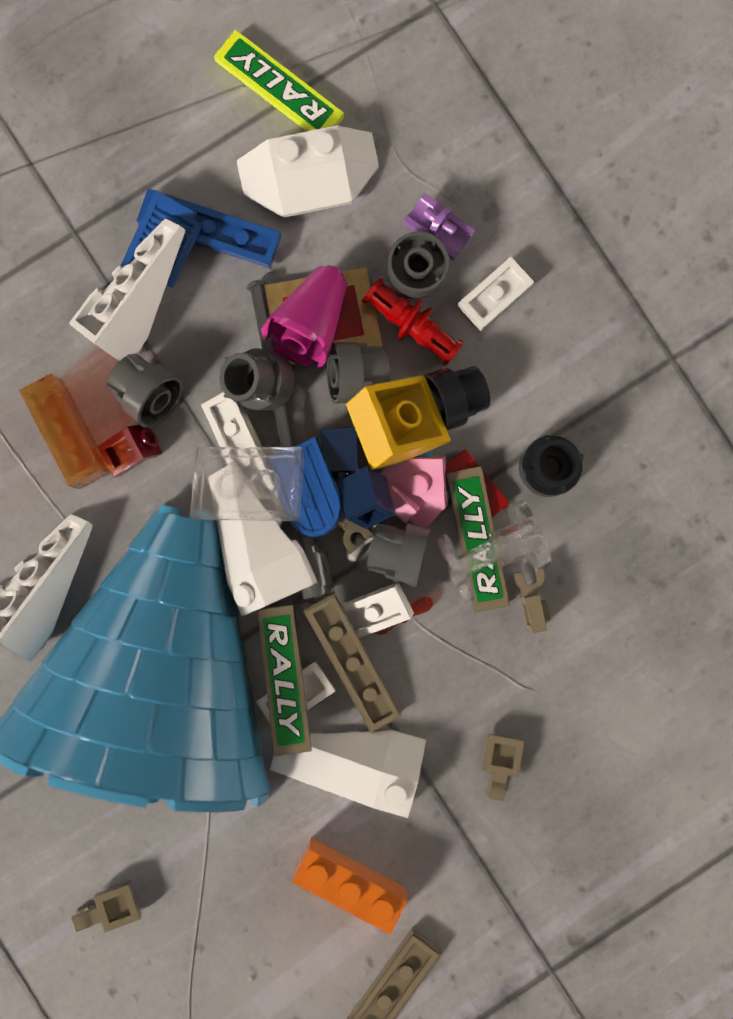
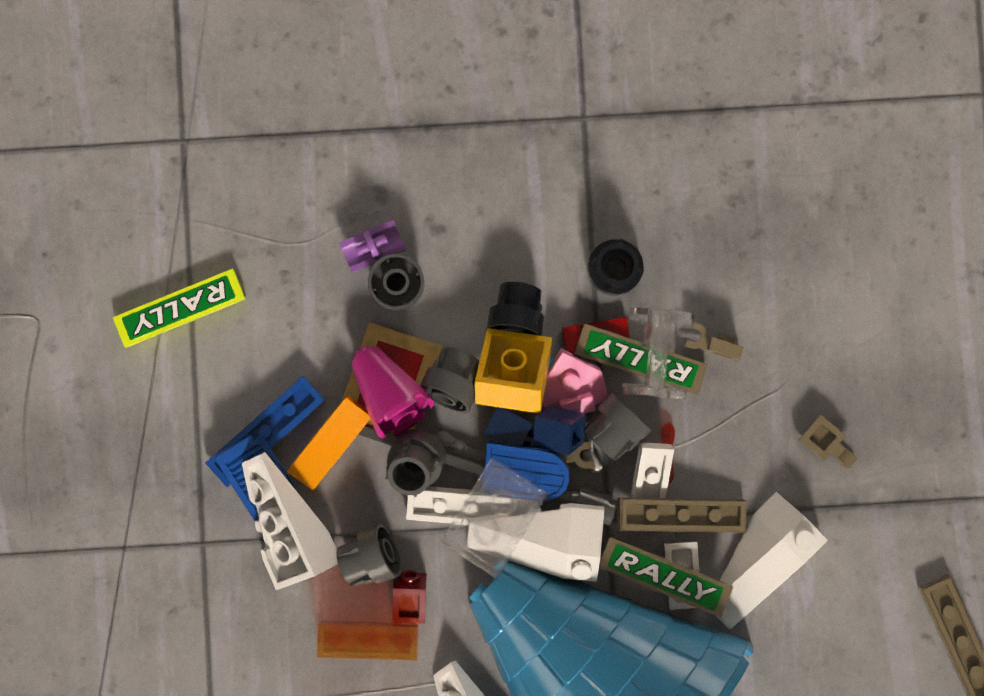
camera: 55 degrees left, 0 degrees up
(231, 291) = (329, 443): none -> light orange tile
(309, 170) = (266, 324): white wedge -> none
(350, 886) = (855, 616): orange brick -> none
(412, 321) = (437, 311): red piece -> none
(495, 293) = (451, 231): white plate -> none

